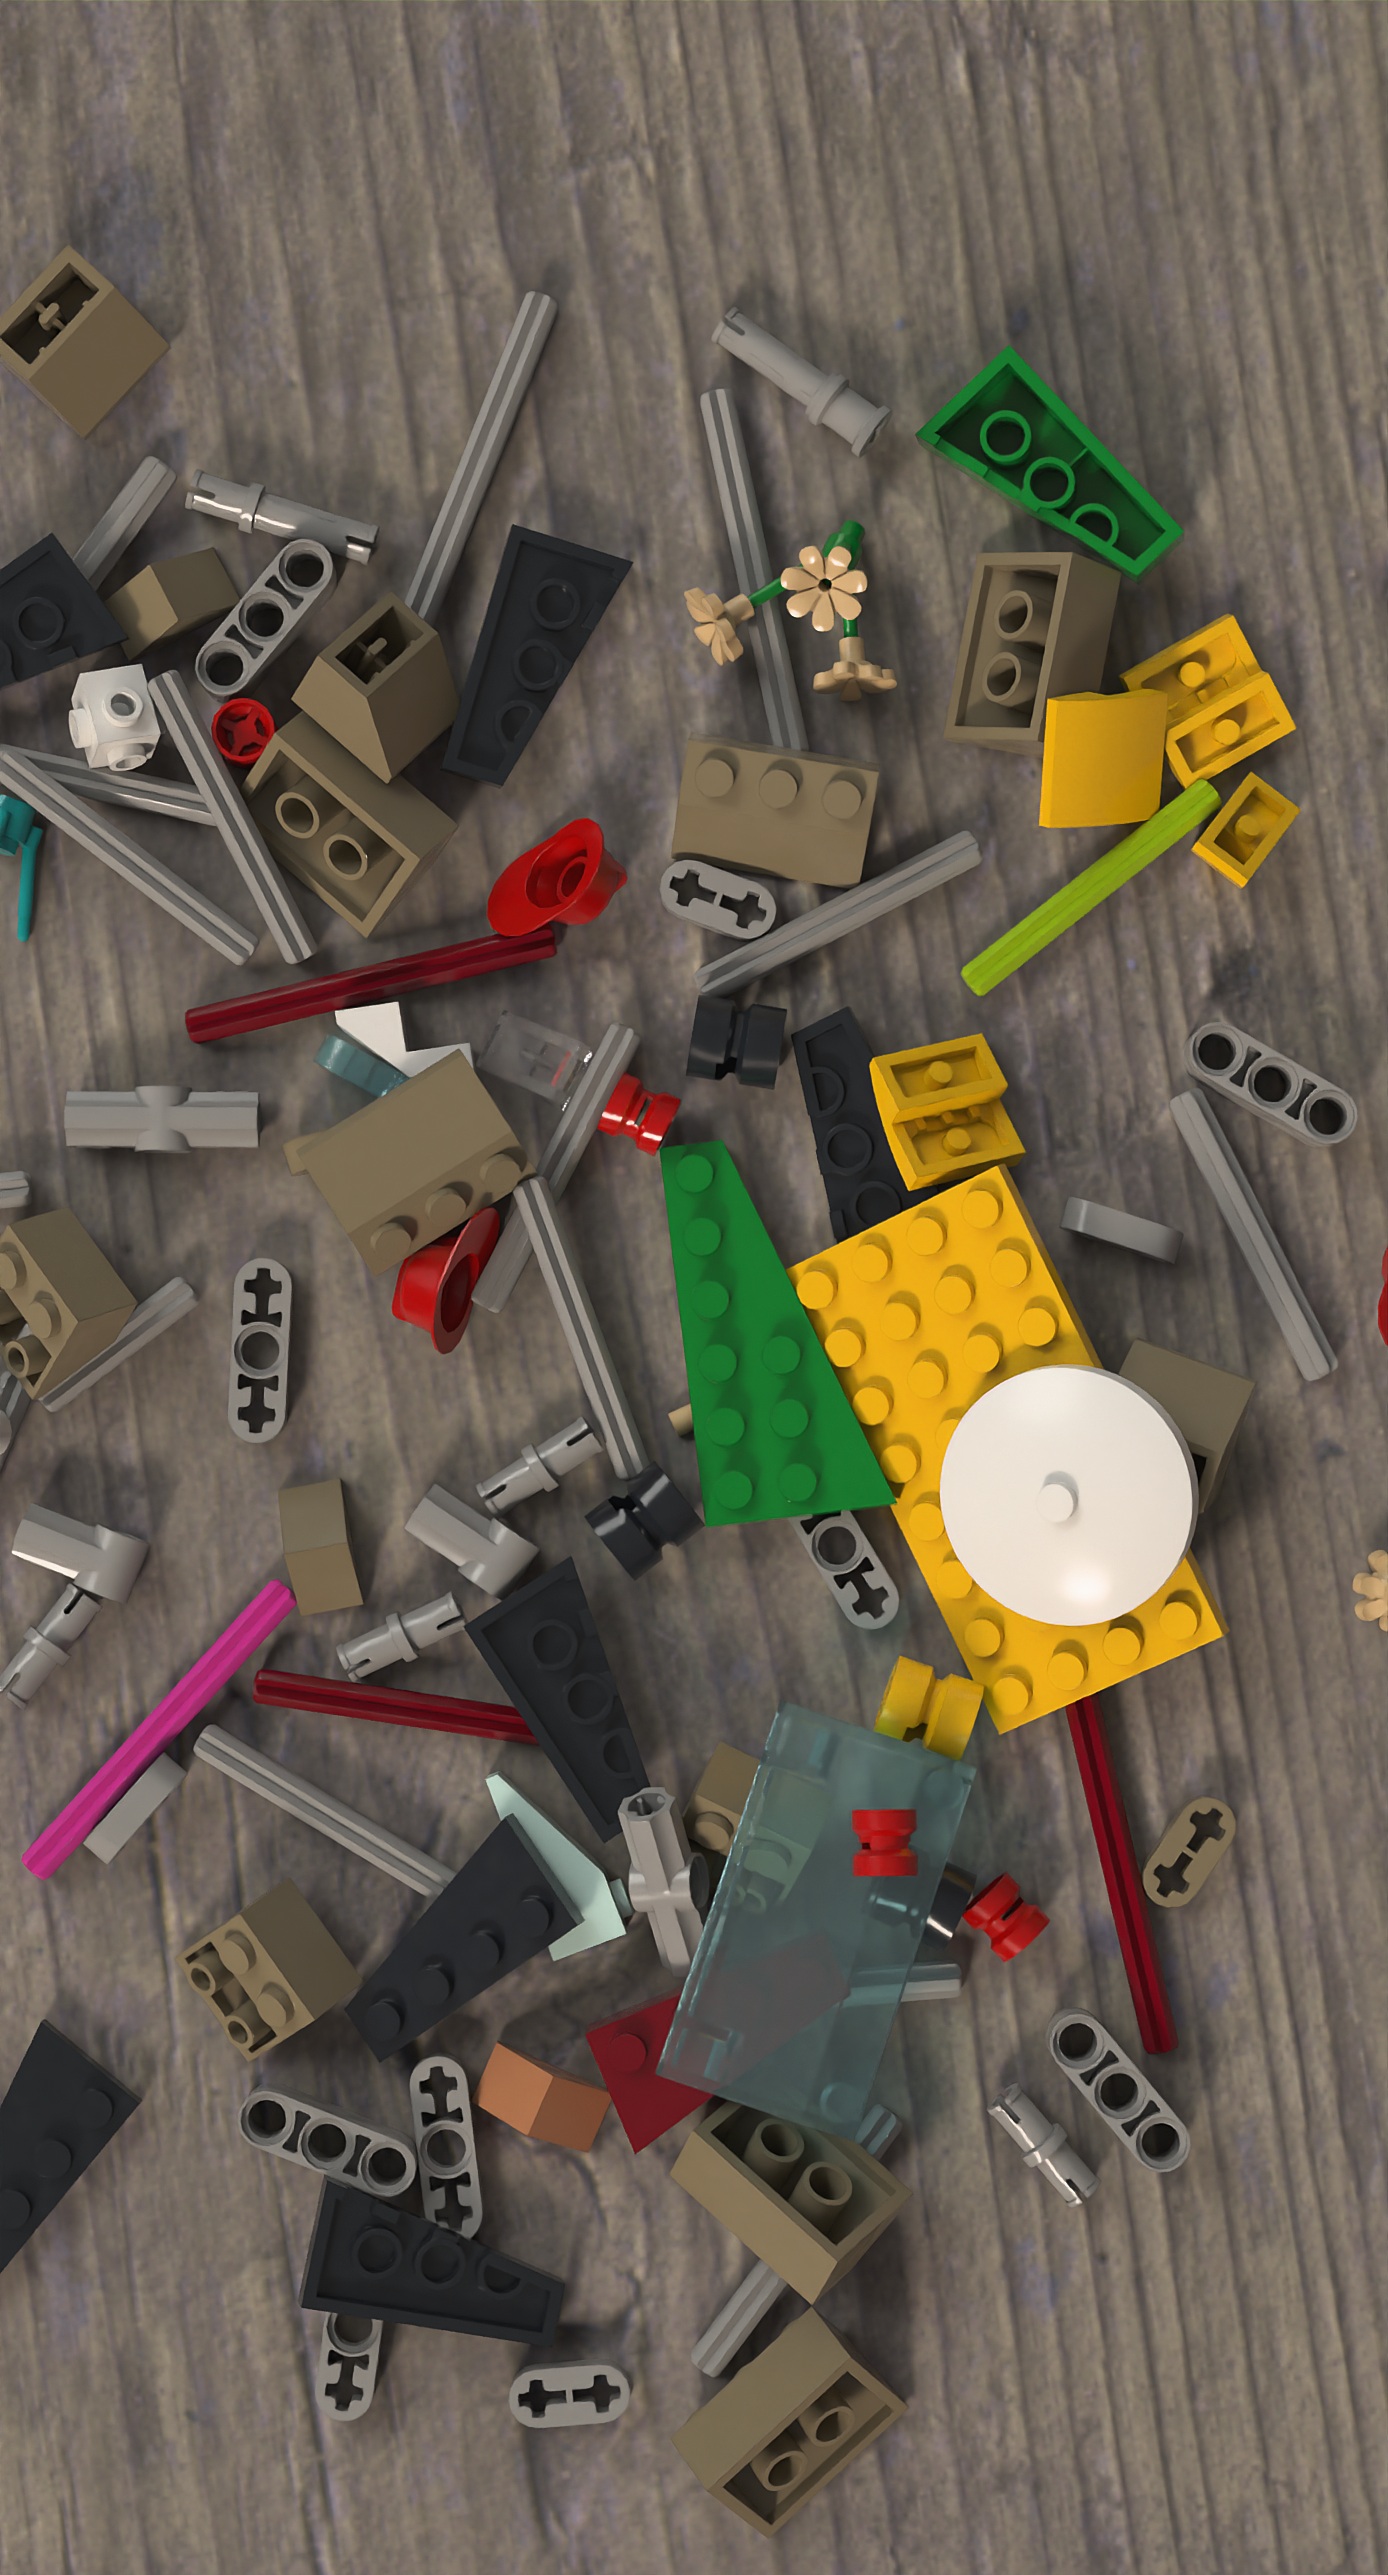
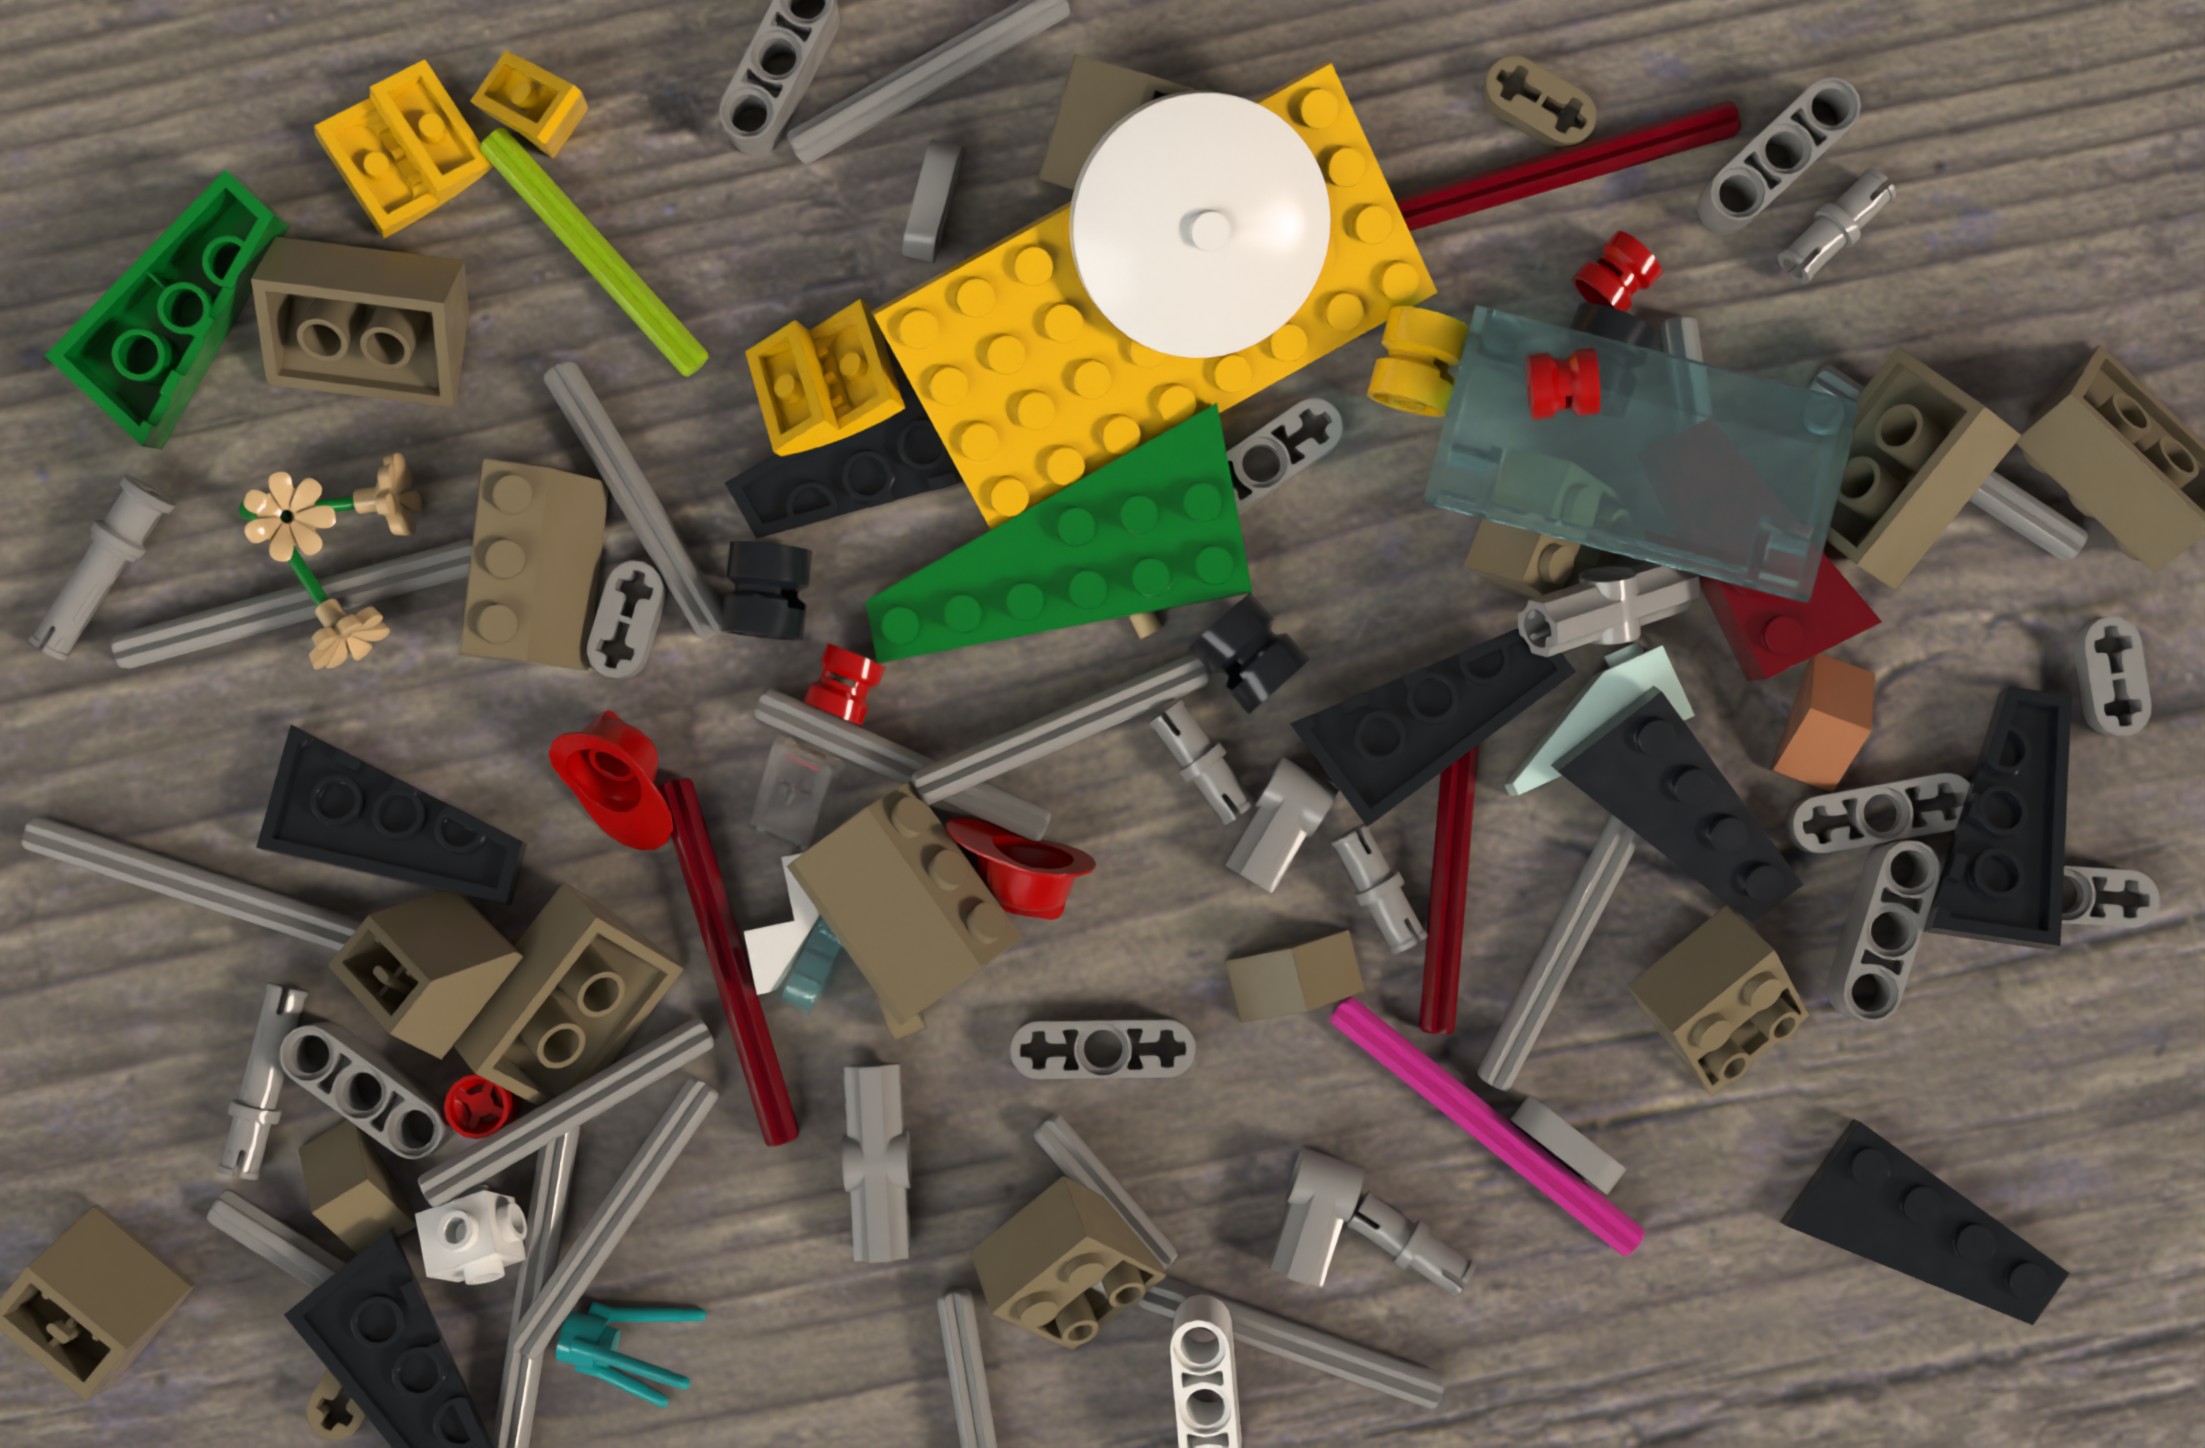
camera: 90 degrees left, 0 degrees up
(1103, 758) = (461, 241): yellow slope -> none

